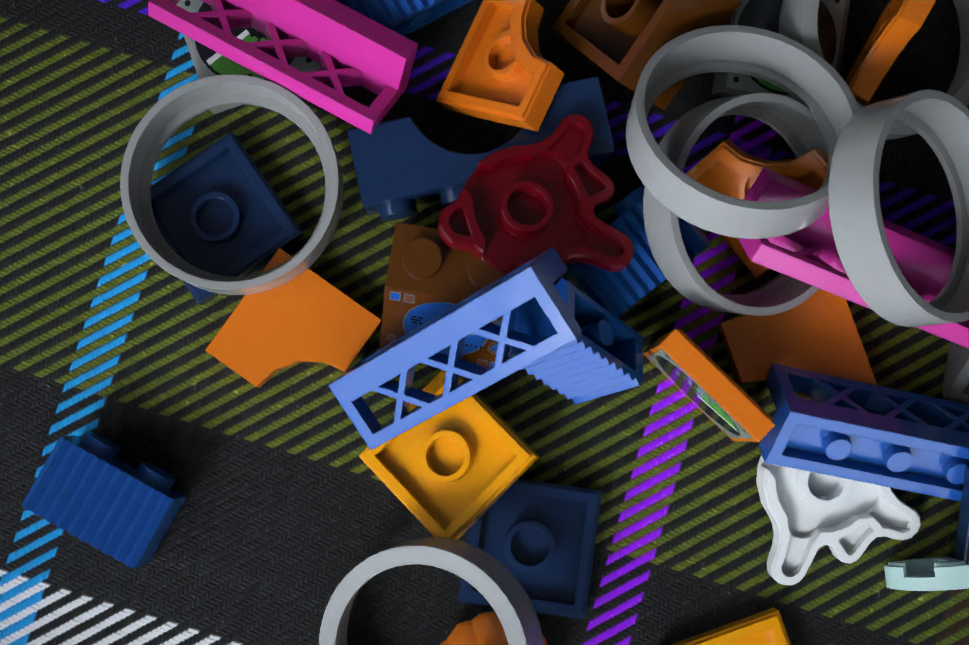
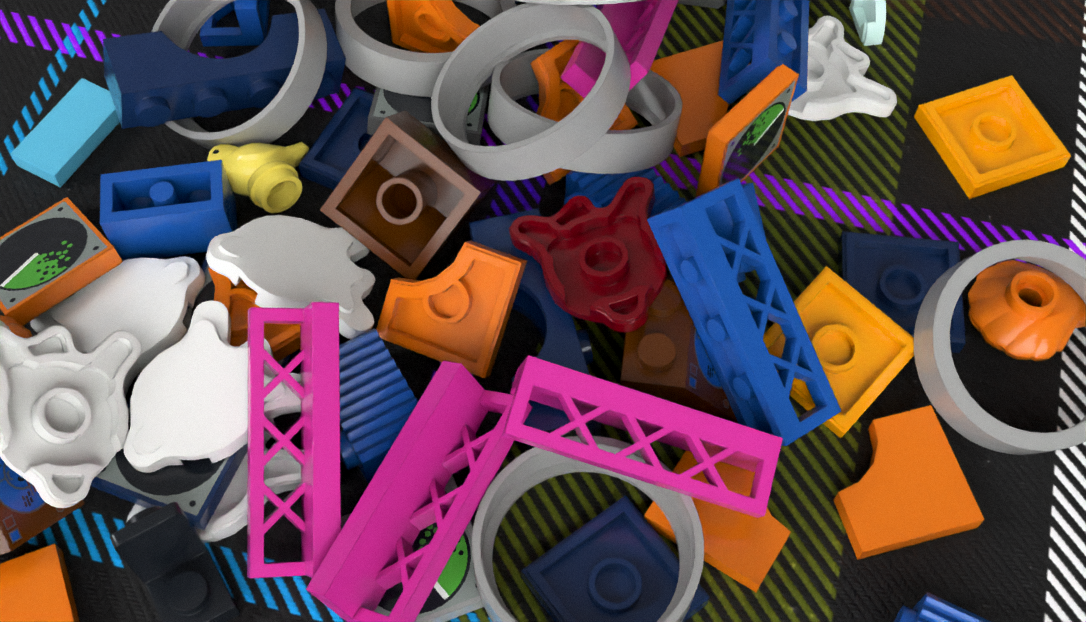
camera: 95 degrees left, 25 degrees down
(301, 515) = (910, 488): none -> orange tile
(347, 239) = (647, 421): none -> dark pink fence

